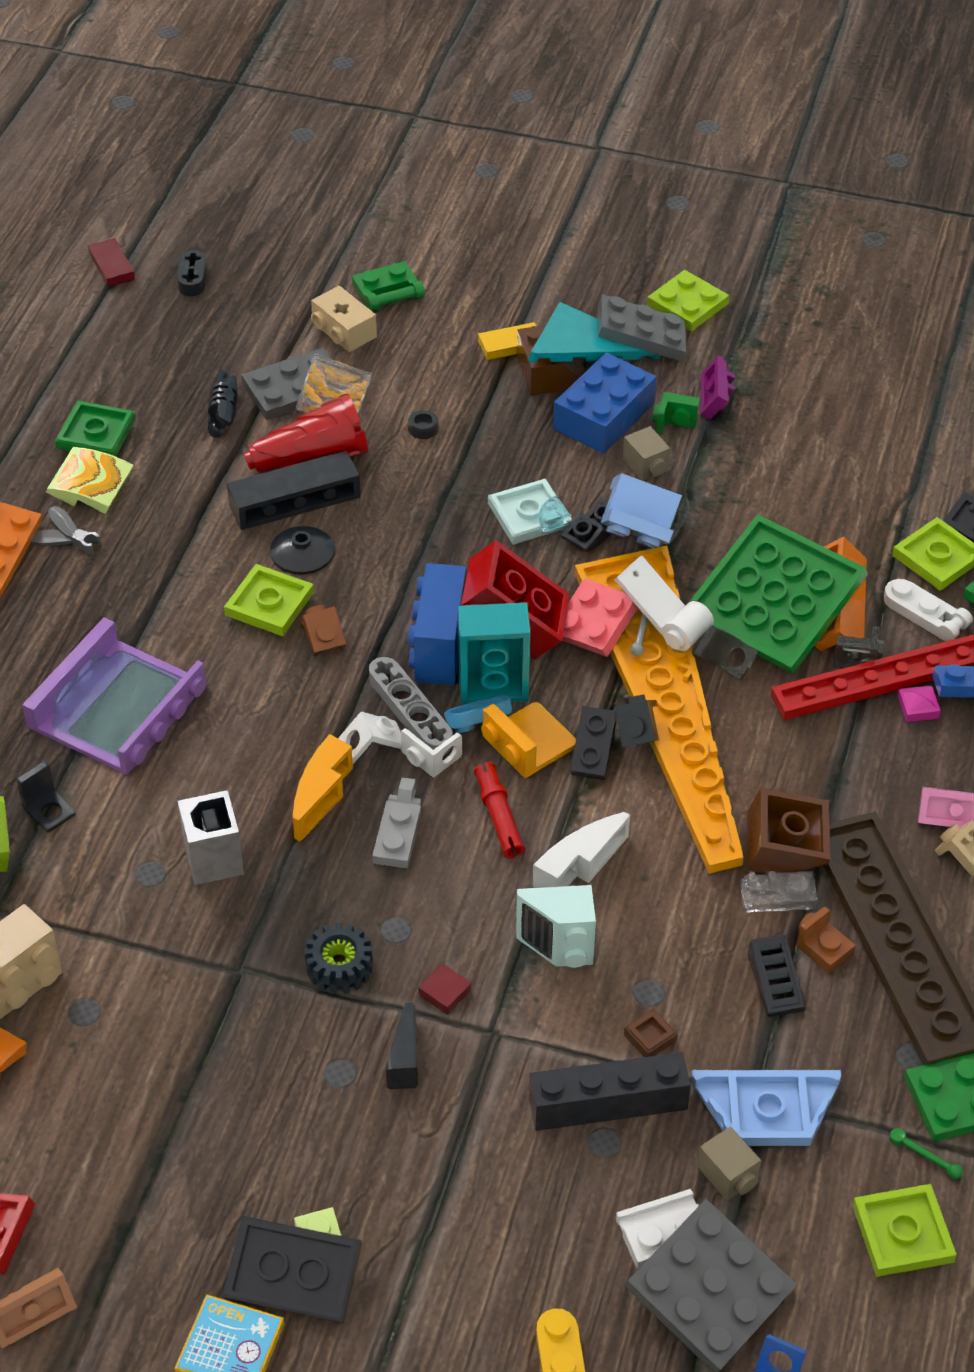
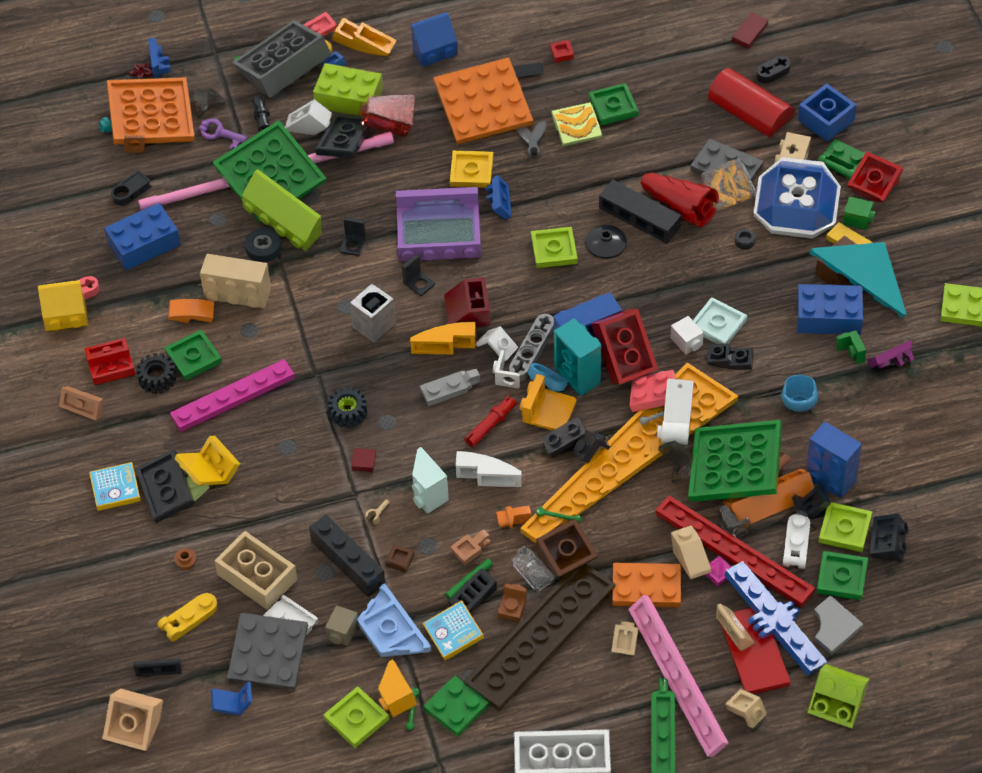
camera: 60 degrees right, 5 degrees up
(56, 615) = (471, 169): none -> yellow plate
(65, 1191) = (156, 363): none -> black tyre
(73, 1104) = (193, 355): none -> green plate
(127, 607) = (499, 197): none -> blue plate
(174, 766) = (412, 273): none -> black bracket
(189, 1097) = (232, 395): none -> dark pink plate
(222, 403) = (680, 143): black hinge -> none
(224, 313) = (750, 102): none -> red brick
(286, 729) = (468, 302): none -> dark red slope
(305, 1181) = (211, 465): none -> yellow bracket
(312, 257) = (827, 112): none -> blue brick
(323, 629) = (551, 280): dark orange bracket -> none
(402, 1061) = (313, 462): black slope -> none
(411, 346) = (792, 215): none -> blue piece
(446, 270) = (875, 177): none -> red slope
(454, 1324) = (185, 564): none -> dark orange plate
(482, 310) = (858, 213): none -> green brick
(533, 543) = (687, 335): none -> white brick
(551, 1019) = (376, 512): none -> tan hand
(553, 515) = (716, 332): clear light blue tile -> none
(555, 1221) = (256, 570): none -> tan brick
(640, 511) = (746, 367): light blue bracket -> none
(641, 327) = (907, 293): dark grey plate -> none
(646, 453) = (805, 350): dark tan brick -> none
(679, 870) = (513, 516): none -> orange piece
(697, 942) = (470, 548): none -> nougat plate
(701, 828) = (540, 511): none -> green hinge
(713, 487) = (799, 393): none -> dark azure hair
(746, 971) = (484, 565): none -> green piece
(827, 1031) = (453, 630): none -> medium azure tile
(854, 497) = (833, 459): none -> blue brick
(881, 709) = (690, 552): none -> tan slope
(885, 560) = (812, 503): none -> black bracket
(890, 783) = (657, 581): none -> orange plate
(890, 1152) = (395, 691): none -> light orange slope

